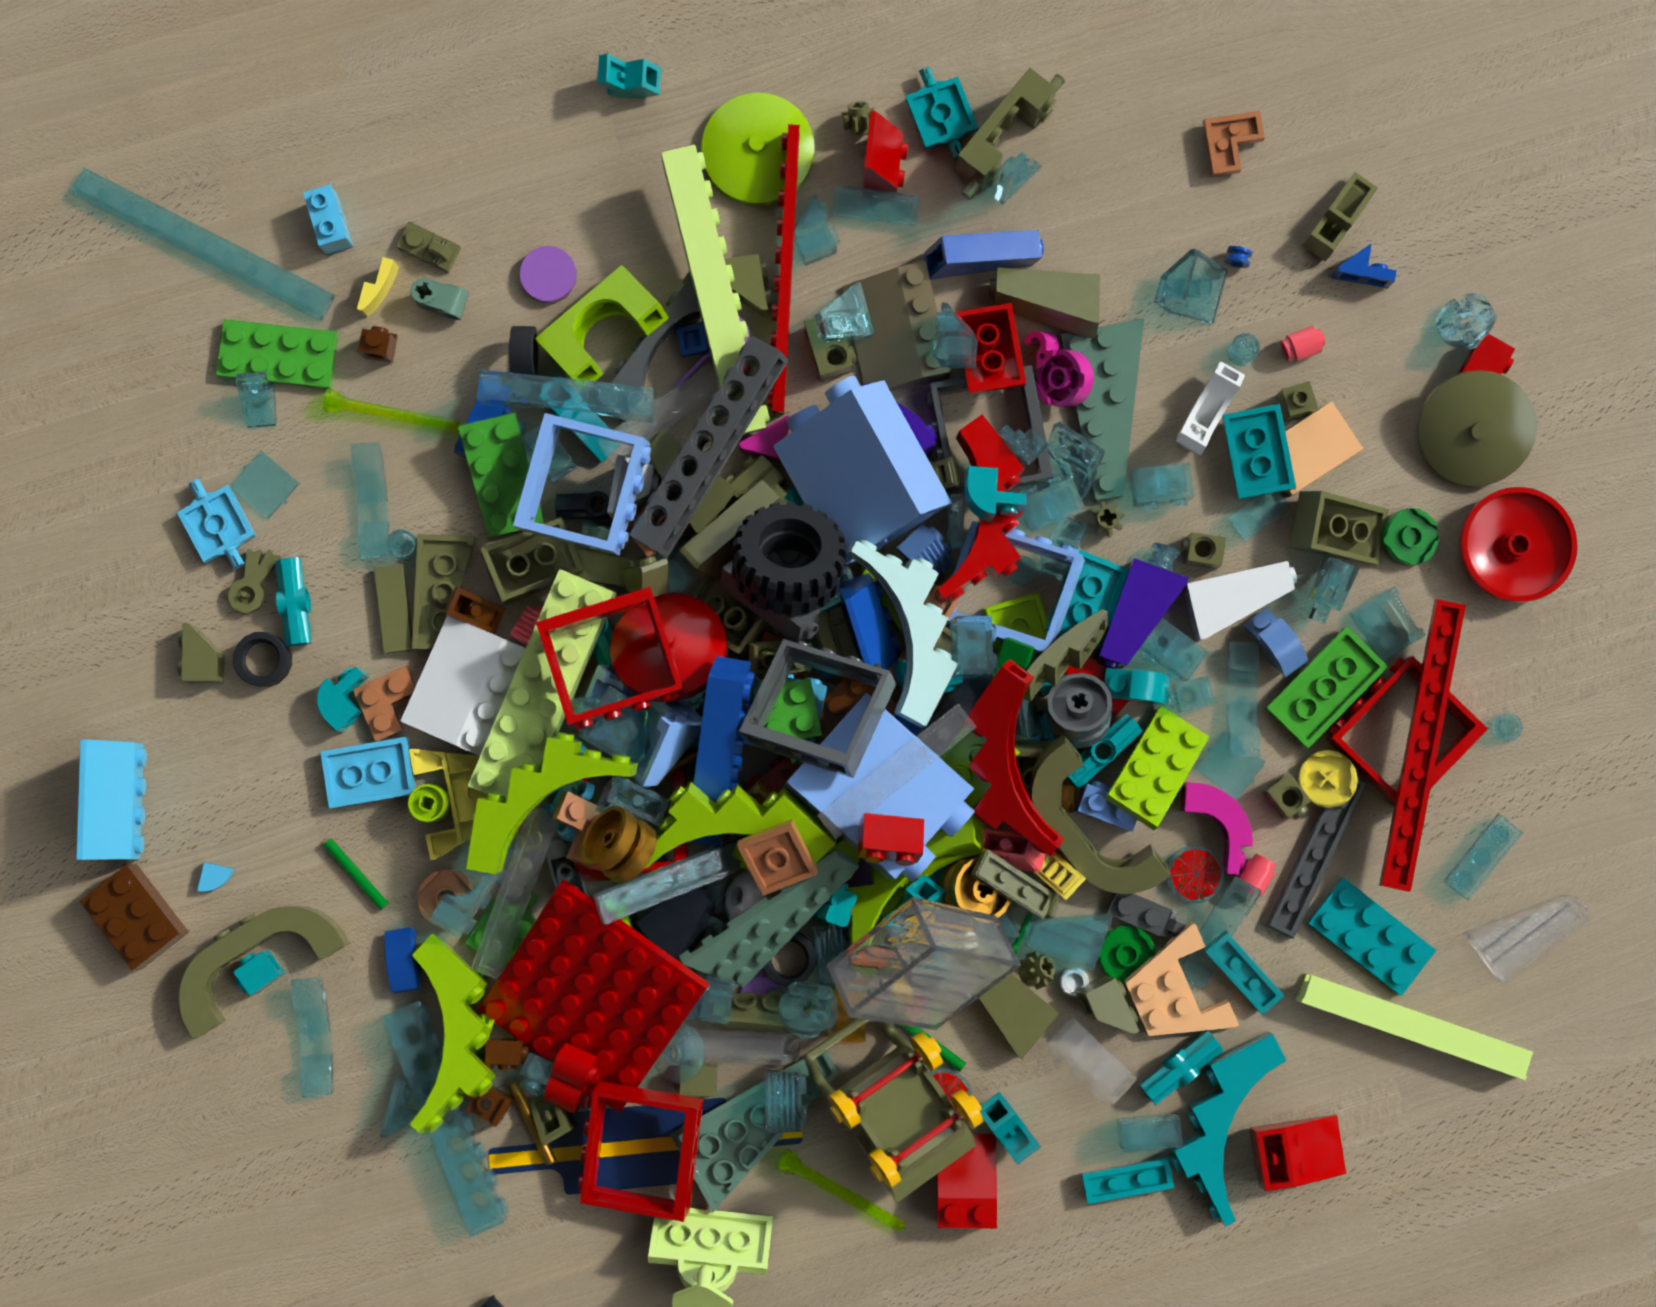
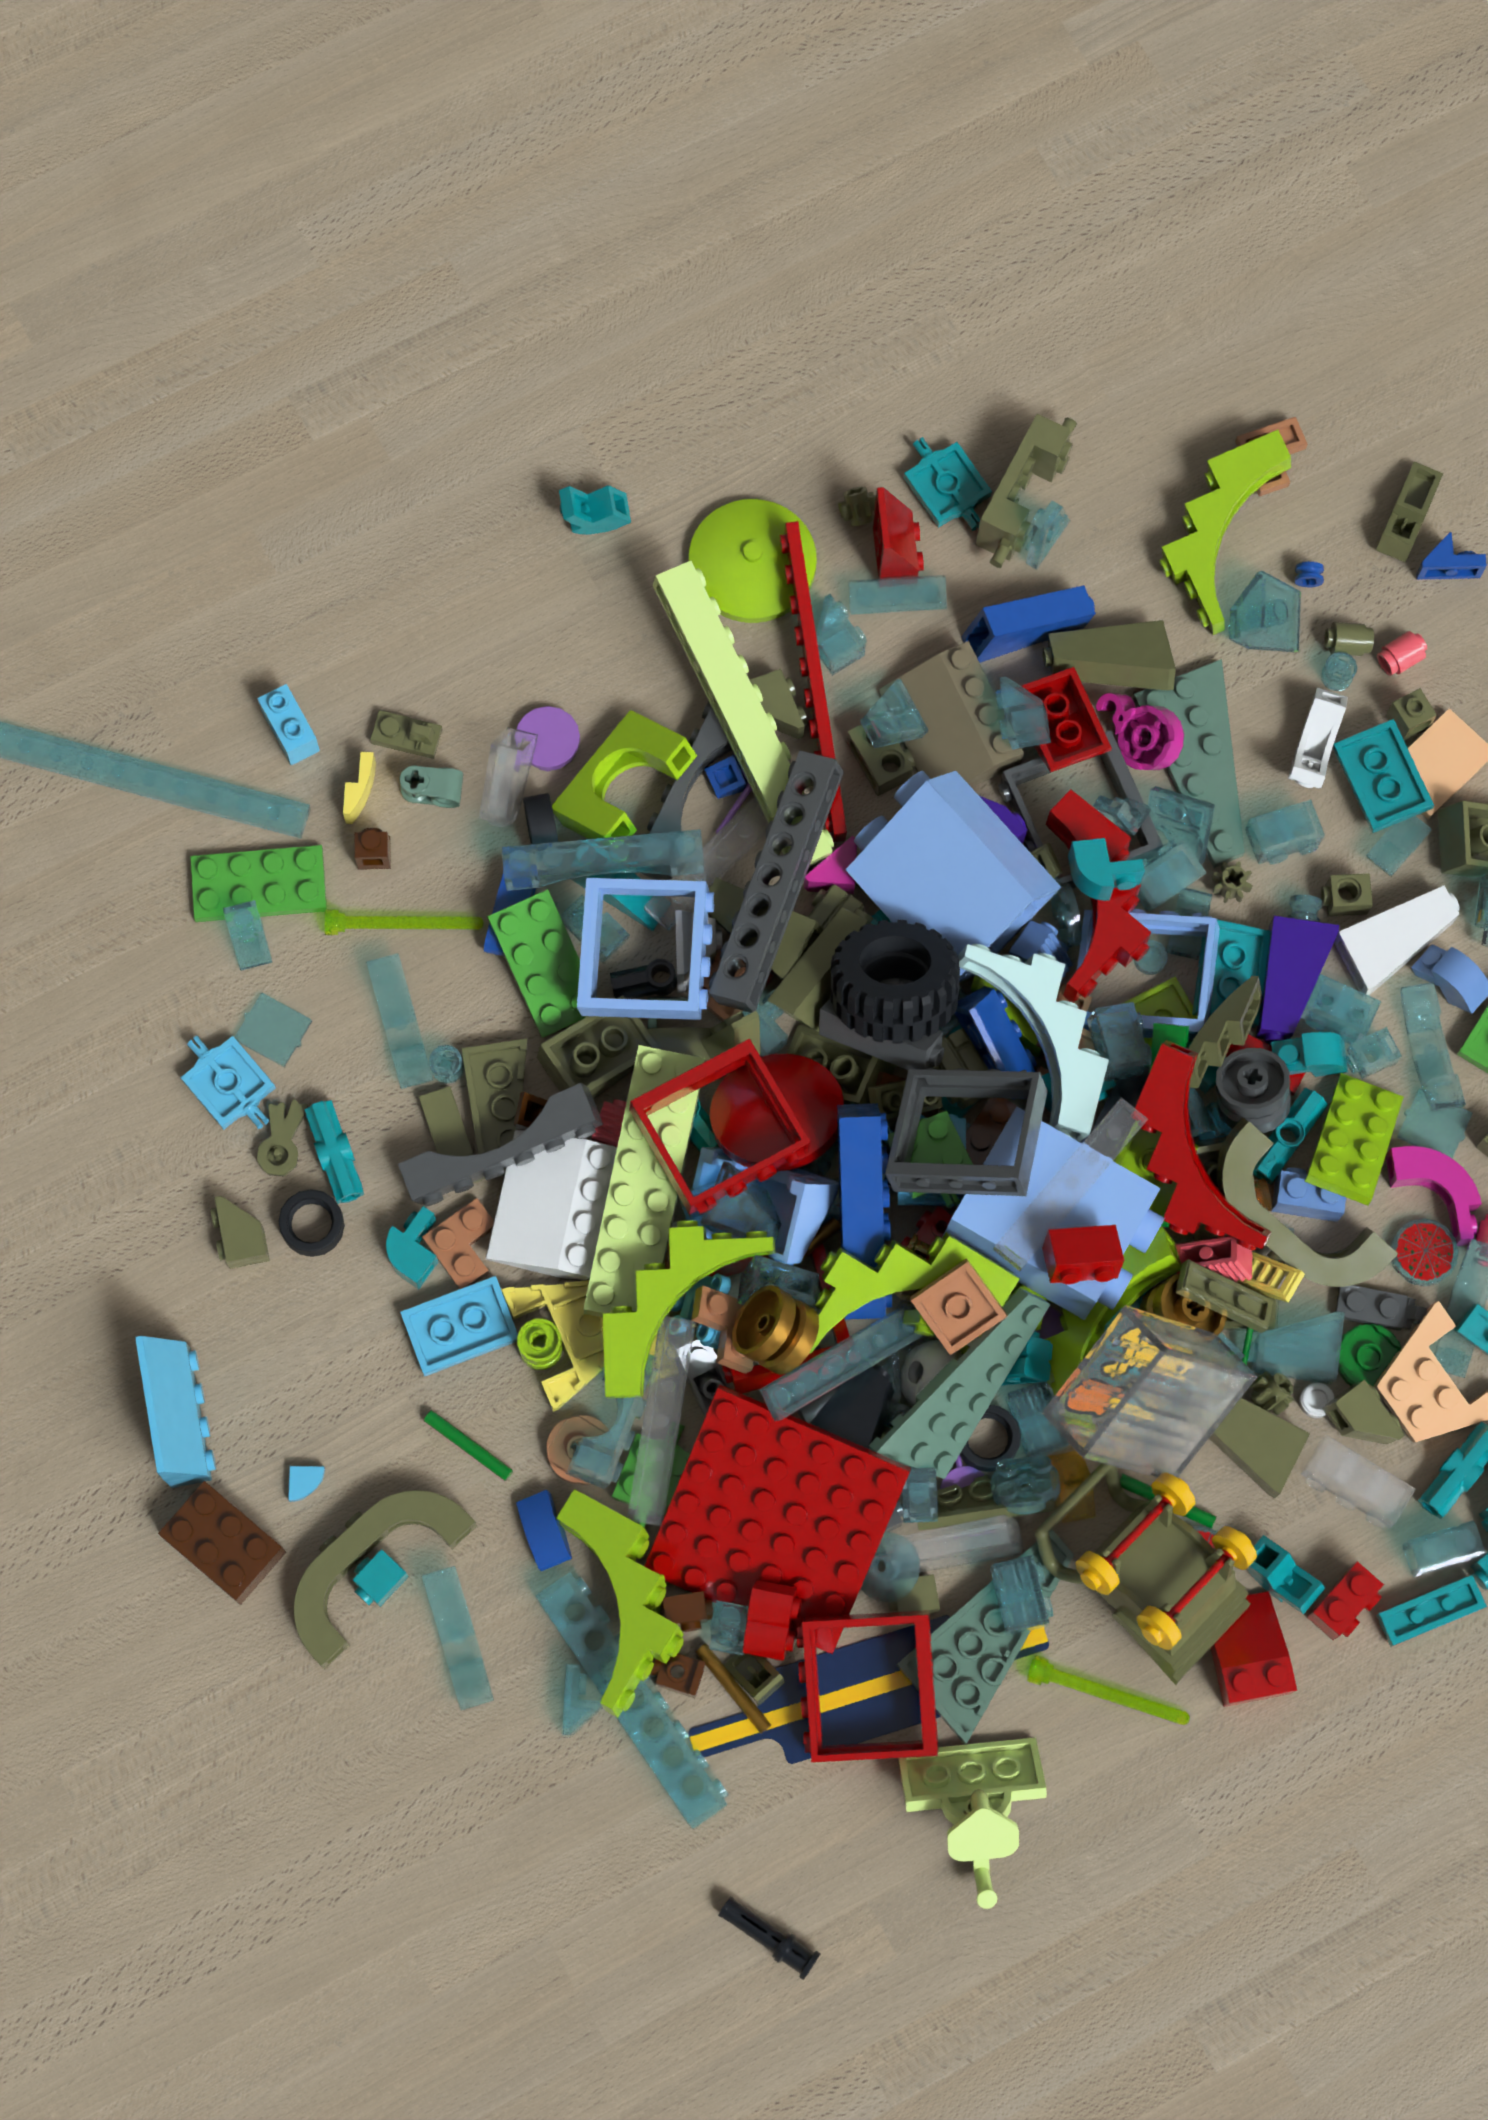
camera: 15 degrees left, 10 degrees down
(483, 617) = (564, 1117): none -> dark grey arch
(503, 302) = (507, 776): none -> clear slope
(1057, 1159) = (1345, 1600): none -> red brick
(1193, 158) = (1235, 478): none -> lime arch
(1259, 322) = (1349, 638): none -> olive brick

